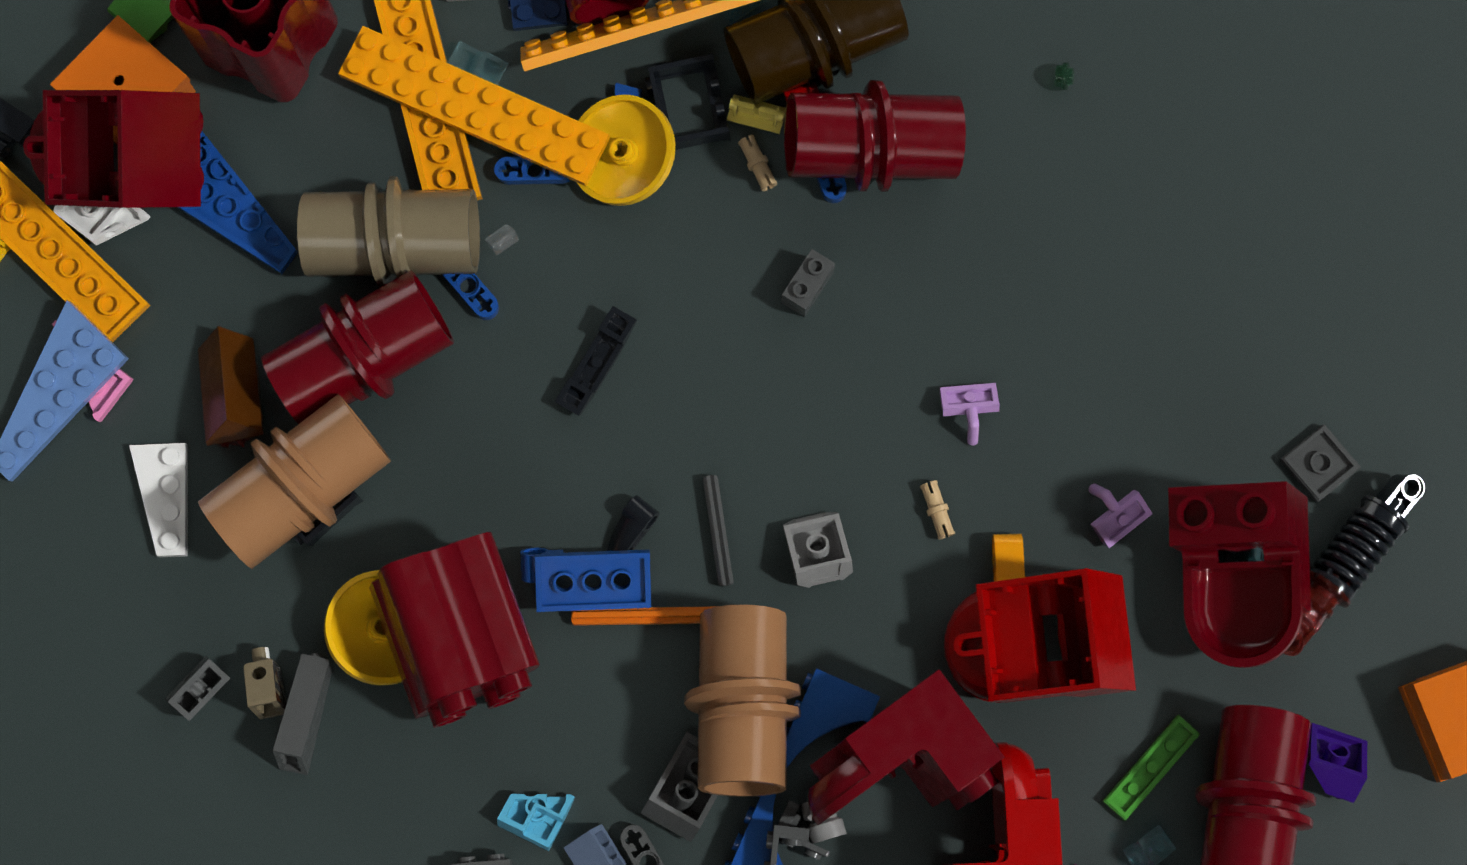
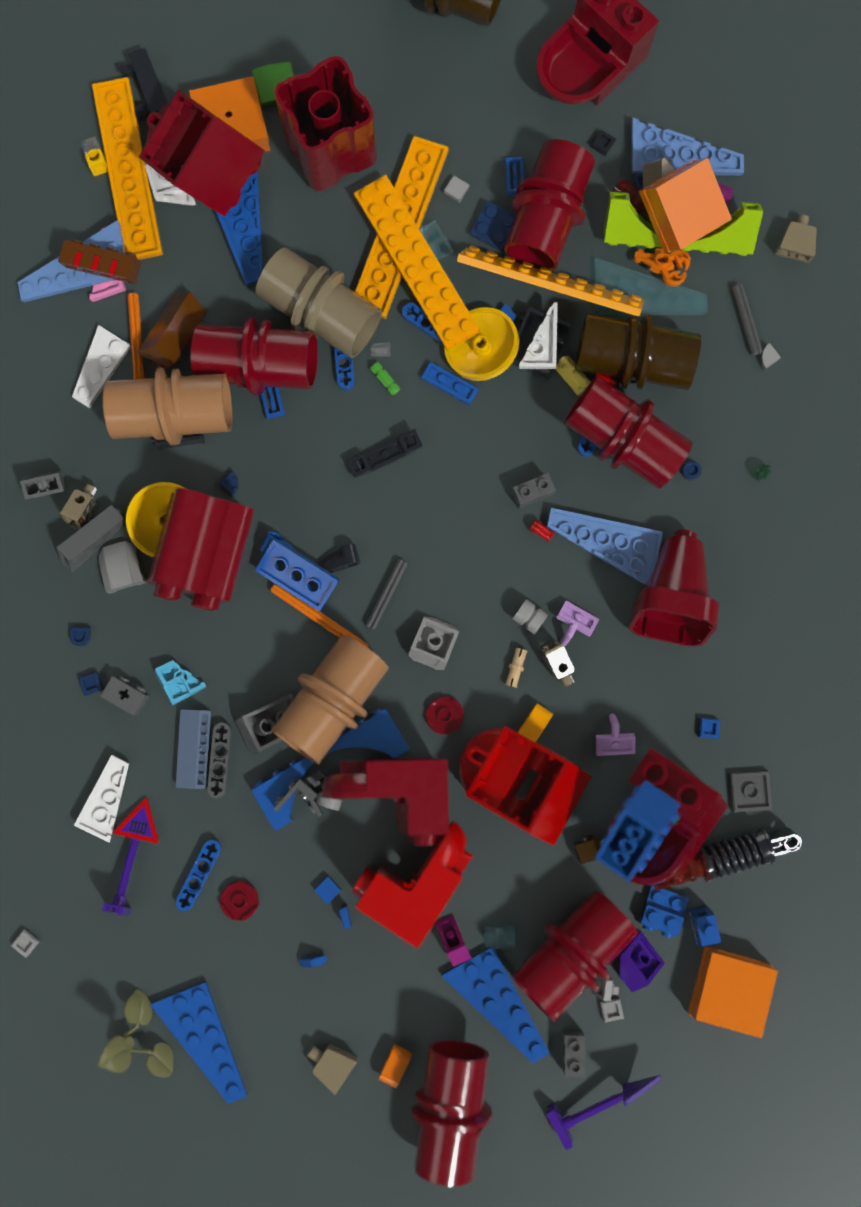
camera: 30 degrees right, 5 degrees up
(82, 364) = (99, 261): none -> reddish brown brick
(186, 428) = (136, 337): none -> orange axle
(364, 723) = (120, 567): none -> light grey slope
(373, 845) = (80, 635): none -> dark blue tile
(426, 406) = (275, 414): none -> blue tile
(430, 527) = (230, 483): none -> dark blue tile
(532, 270) = (385, 378): none -> bright green axle
(614, 224) = (449, 383): none -> blue tile
(701, 106) = (542, 350): none -> white wing
(757, 163) = (553, 403): tan pin -> none
(851, 324) = (541, 530): none -> red pin
(892, 628) = (444, 715): none -> dark red tile
(911, 436) = (530, 616): none -> light grey wheel
(957, 277) = (619, 544): none -> medium blue wing
(974, 462) = (554, 655): none -> torso
(978, 131) = (691, 470): none -> dark blue tile
(1069, 291) = (677, 597): none -> dark red cone
(1151, 767) = (533, 892): bright green tile -> none
(1180, 667) = (587, 849): none -> dark brown brick
(1218, 422) = (709, 728): none -> blue tile
(1224, 595) = (638, 830): none -> blue brick
(1321, 679) = (663, 911): none -> blue plate
(1322, 821) = (606, 989): none -> light grey tile
(1345, 842) = (612, 1010): none -> light grey tile
(1382, 662) = (704, 927): none -> blue torso

